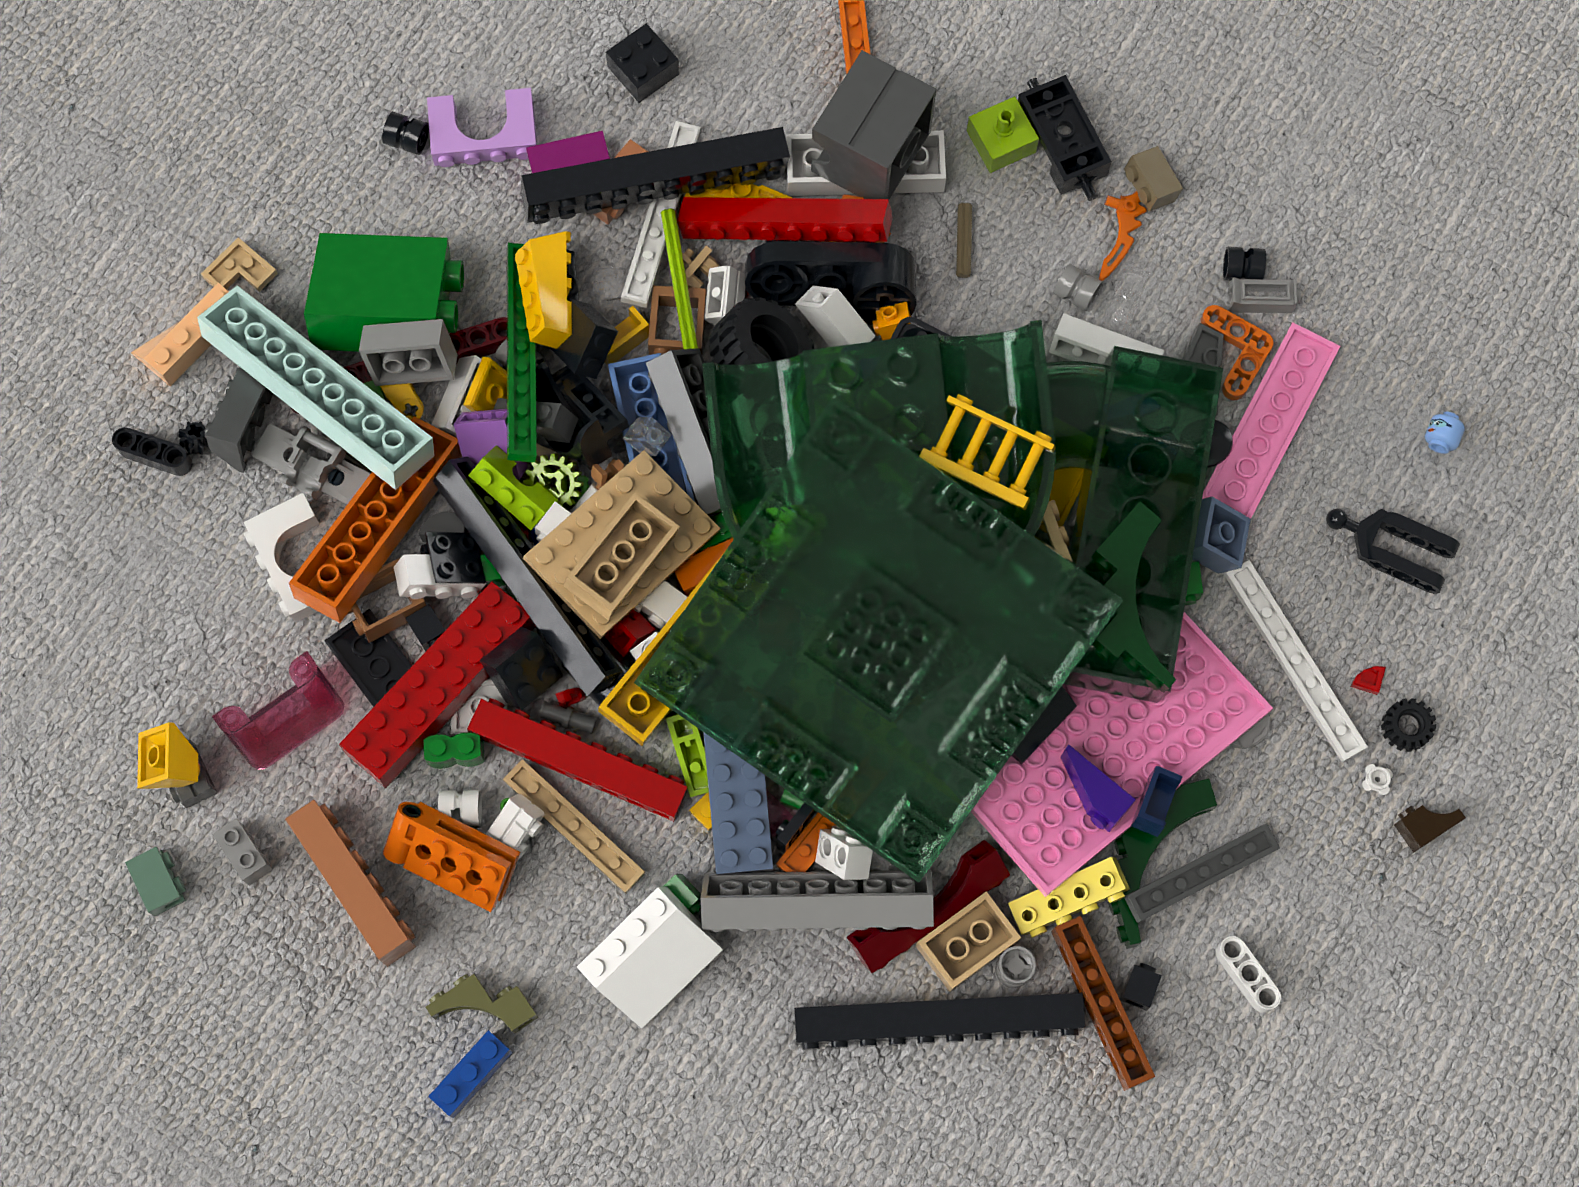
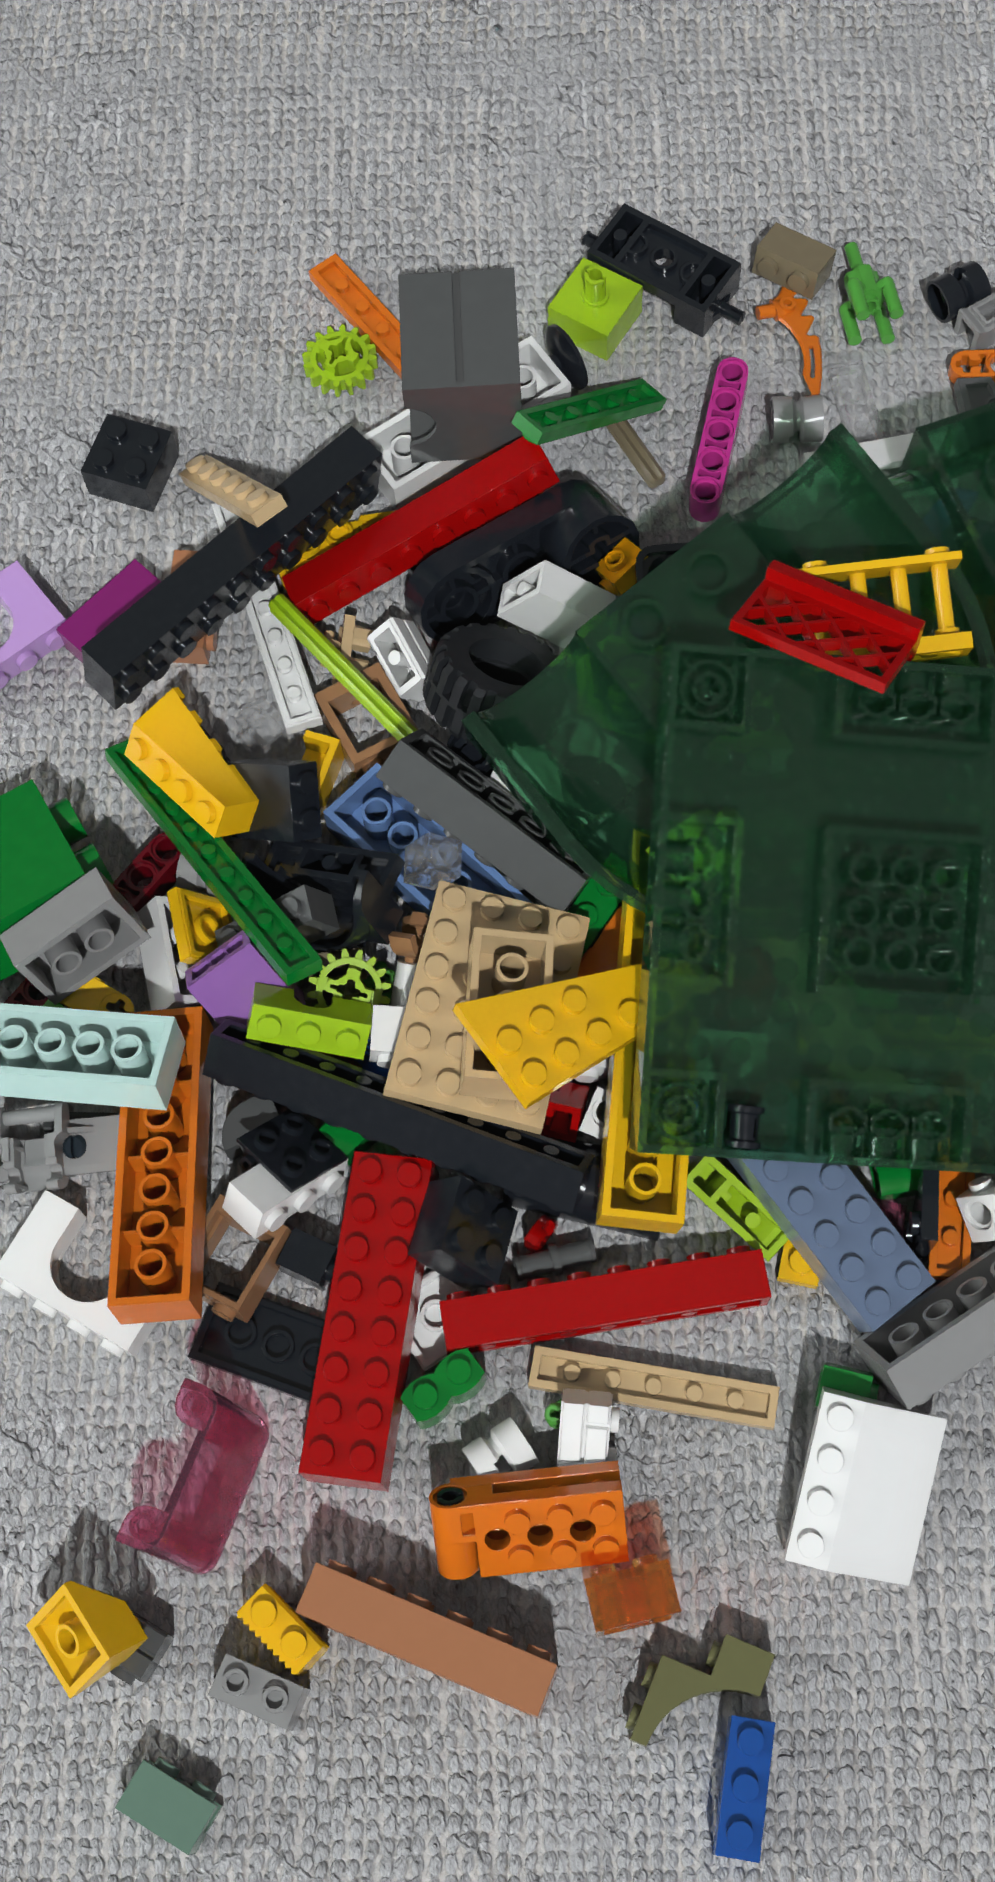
camera: 25 degrees left, 5 degrees down
(275, 830) = (282, 1630): none -> yellow brick
(477, 932) = (631, 1595): none -> clear orange brick
(636, 582) = (555, 1029): none -> yellow wing
(684, 123) = (232, 490): none -> tan plate
(709, 707) = (744, 1126): none -> black bush
(817, 75) = (340, 360): none -> lime gear
(940, 205) = (588, 411): none -> green plate
(953, 437) = (830, 610): none -> red fence
(954, 157) = (566, 356): none -> black dish
(1024, 259) = (713, 452): none -> dark pink beam
(1182, 230) = (867, 297): none -> bright green plant

